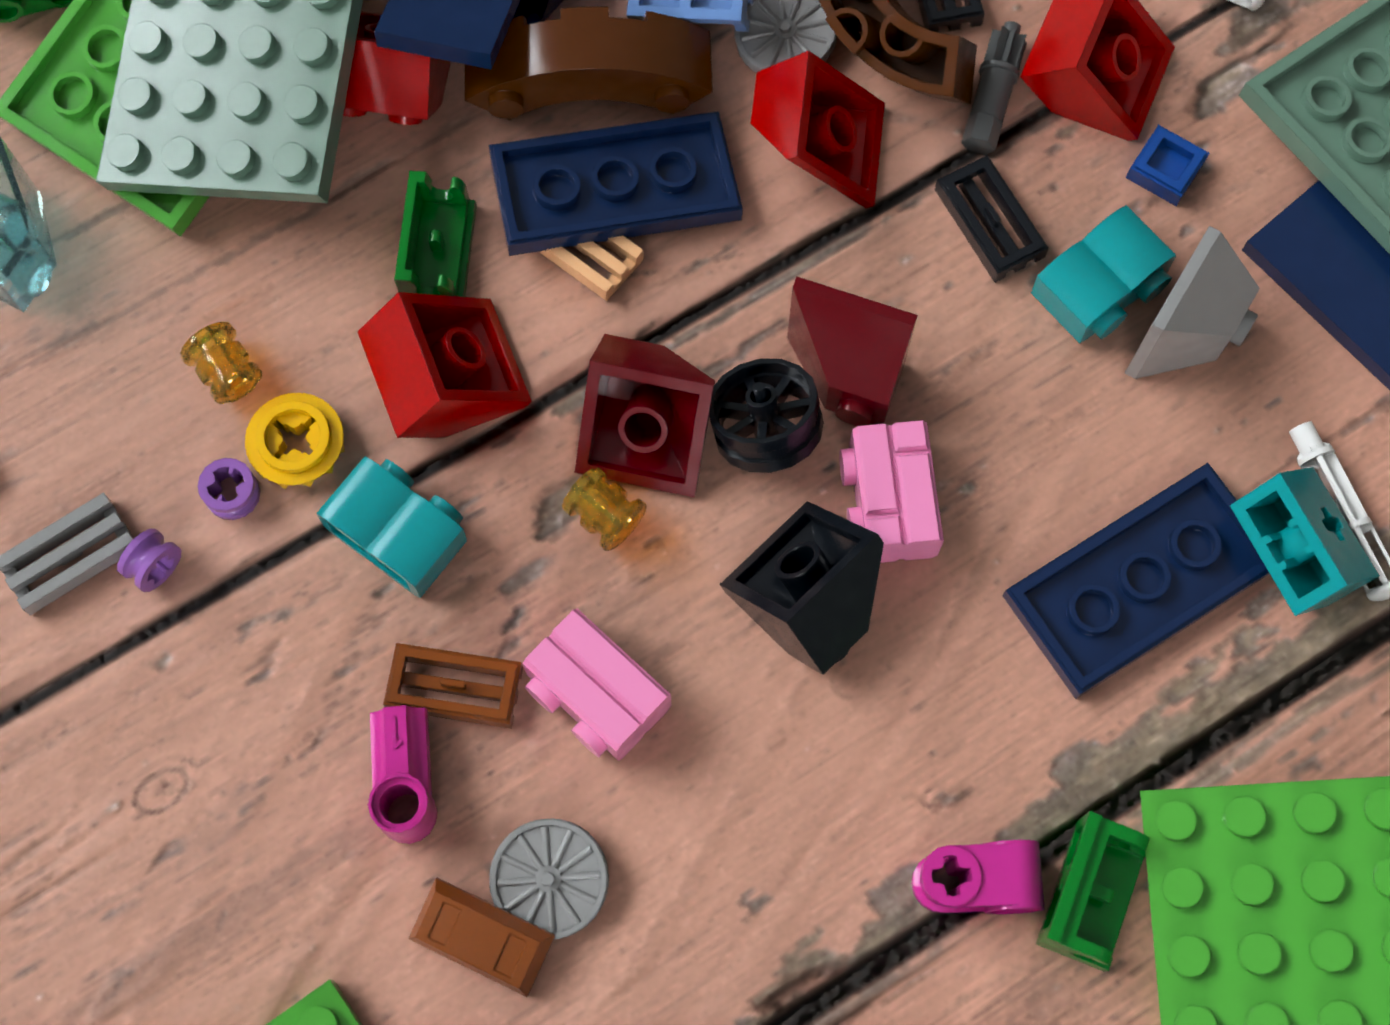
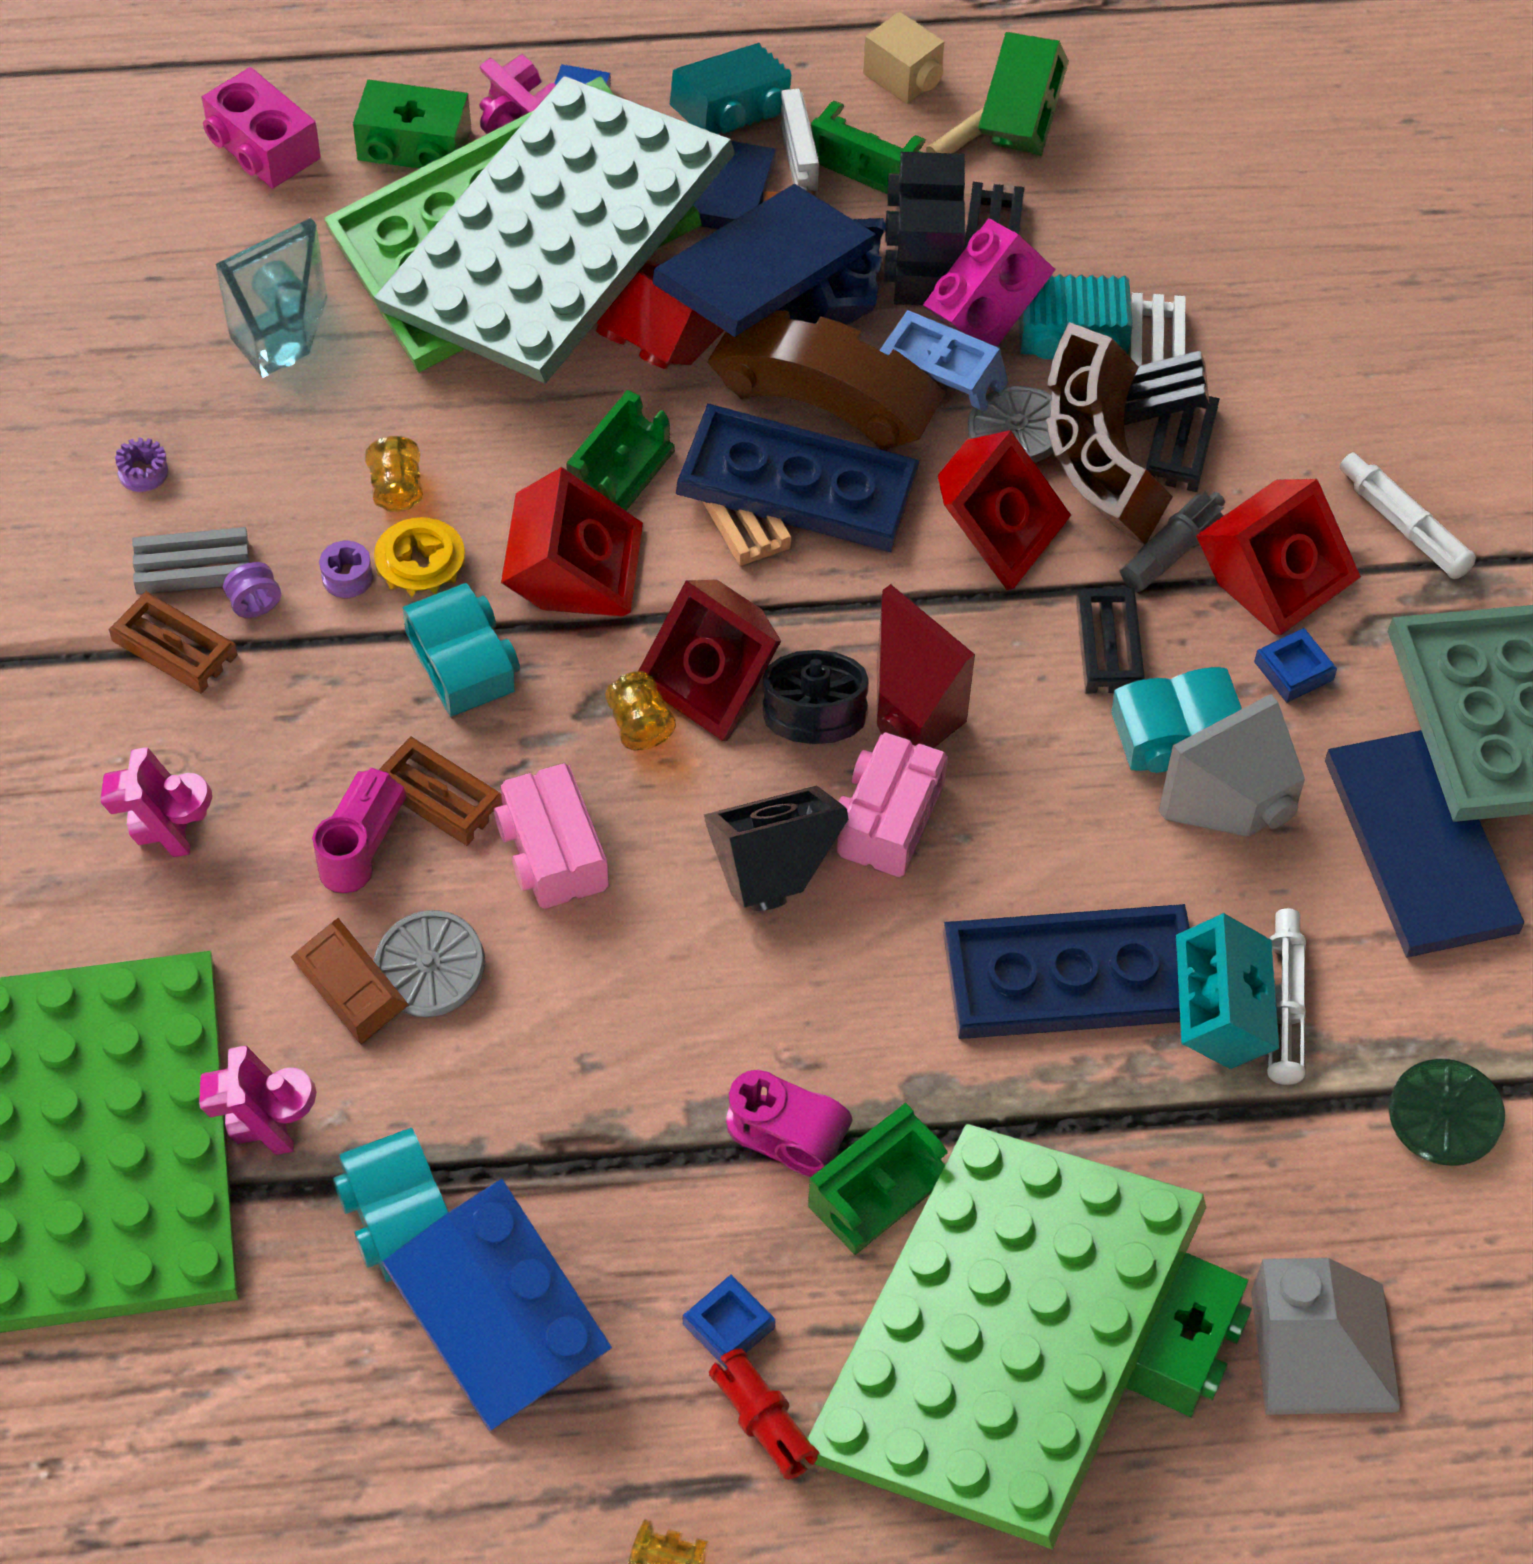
camera: 25 degrees right, 15 degrees down
(150, 659) = (193, 677): none -> dark orange tile
(189, 853) = (156, 801): none -> dark pink hips

